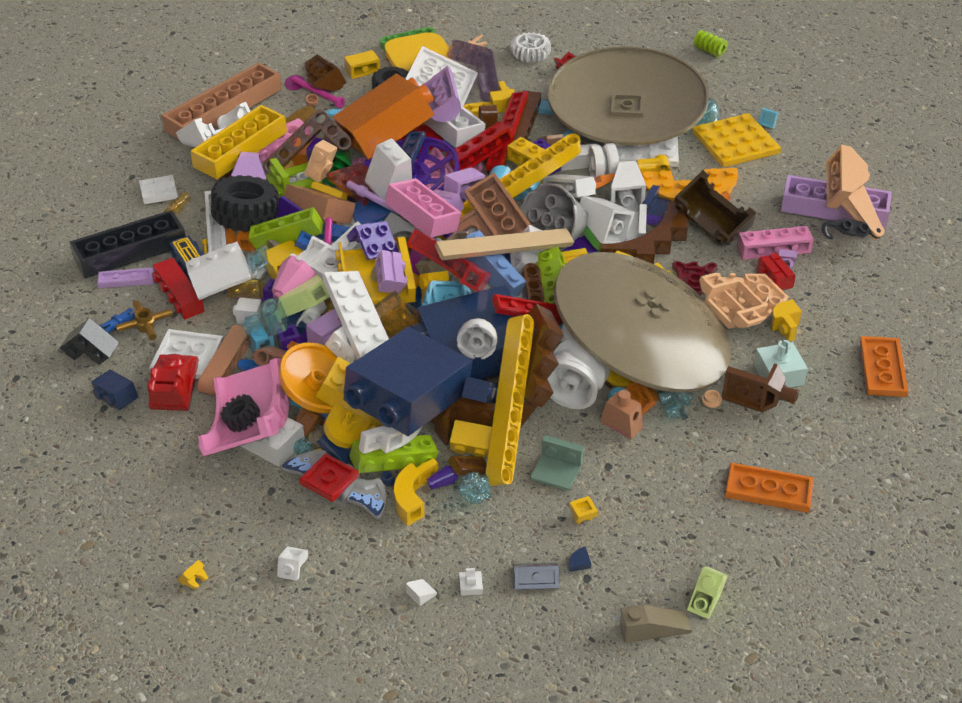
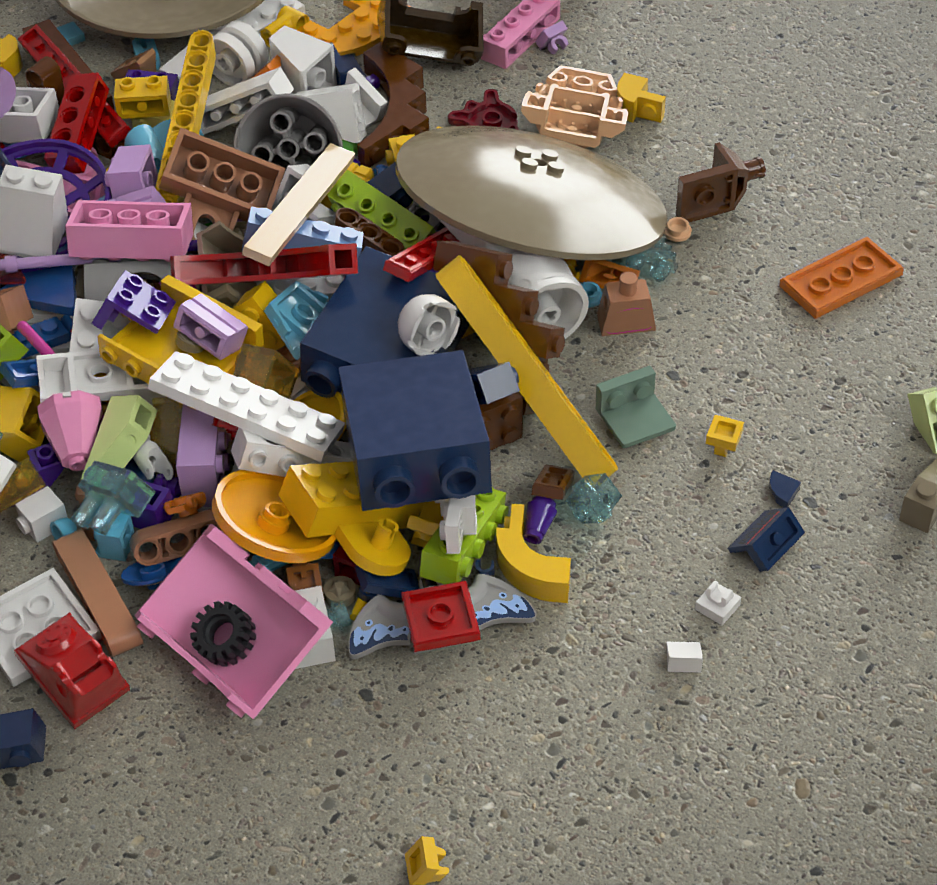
camera: 45 degrees left, 5 degrees up
(290, 563) = (515, 746): white bracket -> none
(470, 438) = (519, 451): yellow brick -> none
(776, 270) = (557, 52): red brick -> none
(787, 359) = (692, 144): light aqua brick -> none
(883, 366) = (780, 84): orange plate -> none

